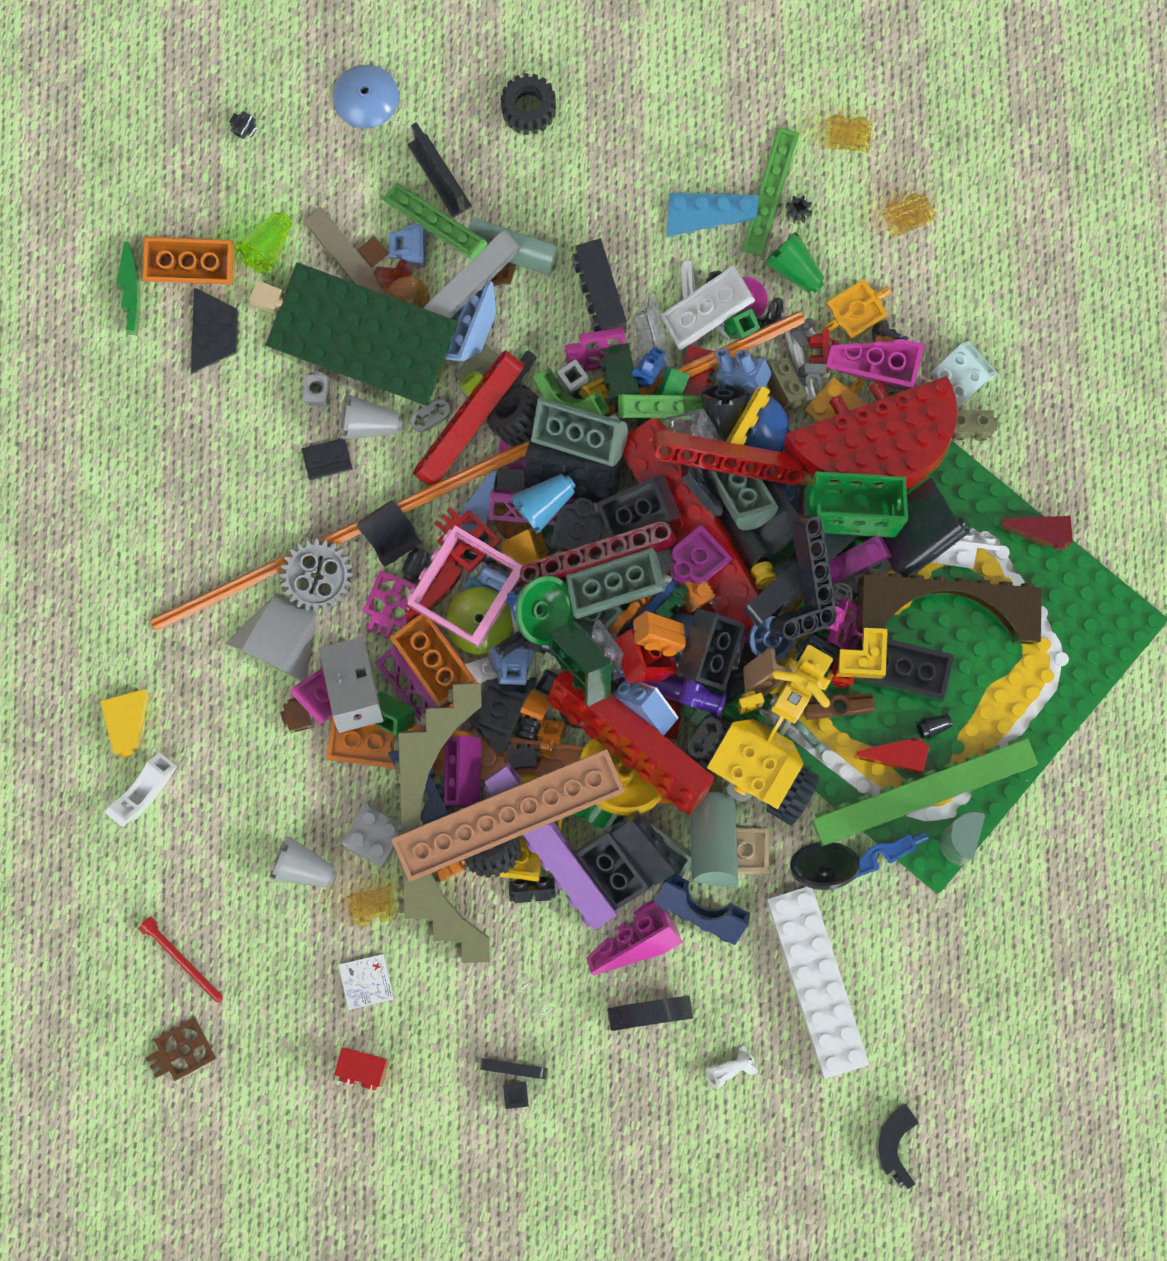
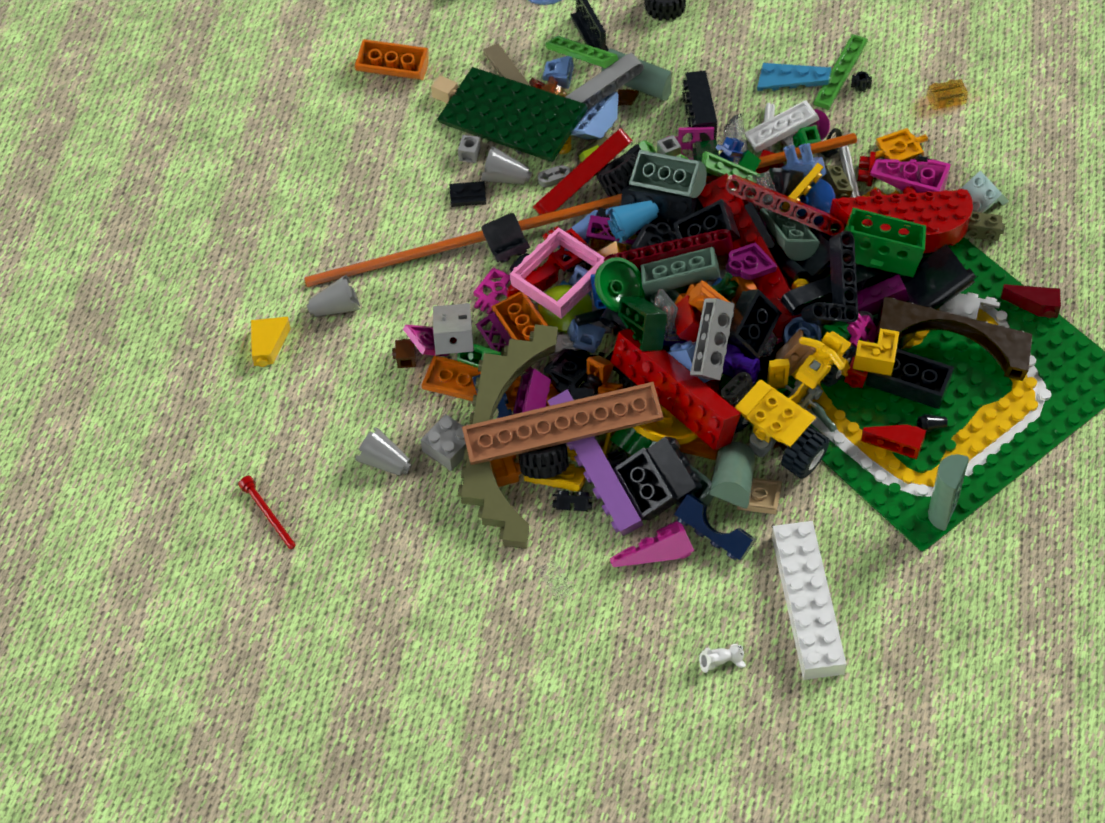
camera: 10 degrees right, 25 degrees down
(129, 282) = (344, 71): green slope -> none
(143, 791) = (271, 387): white arch -> none
(164, 1059) = (234, 583): reddish brown piece -> none
(196, 651) = (334, 299): none -> light grey cone
(212, 330) = (399, 107): black wing -> none
(265, 243) = (450, 56): clear neon green cone -> none
(278, 636) = (403, 300): light grey wedge -> none
(295, 569) = (426, 252): light grey gear -> none
(361, 1067) = (400, 606): red brick -> none
(366, 982) = (418, 550): white tile -> none
(371, 906) = (436, 493): clear yellow brick -> none
(373, 251) = (531, 71): reddish brown tile -> none
(513, 1068) = (526, 628): black beam -> none
(515, 1096) = (528, 647): black panel -> none
(575, 831) = (616, 457): none -> black gear
(650, 1013) = (658, 597): black arch -> none
(669, 689) = (712, 339): none -> light grey brick
(796, 264) = (854, 111): green cone -> none
(803, 332) = (854, 152): flat silver tile -> none
(812, 371) = (859, 176): flat silver tile -> none
(825, 866) = (826, 511): black dish -> none
(848, 133) = (905, 42): clear yellow brick -> none
(853, 704) = (852, 399): reddish brown piece -> none
(887, 1143) = (861, 725): black arch -> none
(891, 852) = (885, 511): blue piece -> none
(924, 792) = (914, 468): bright green brick -> none

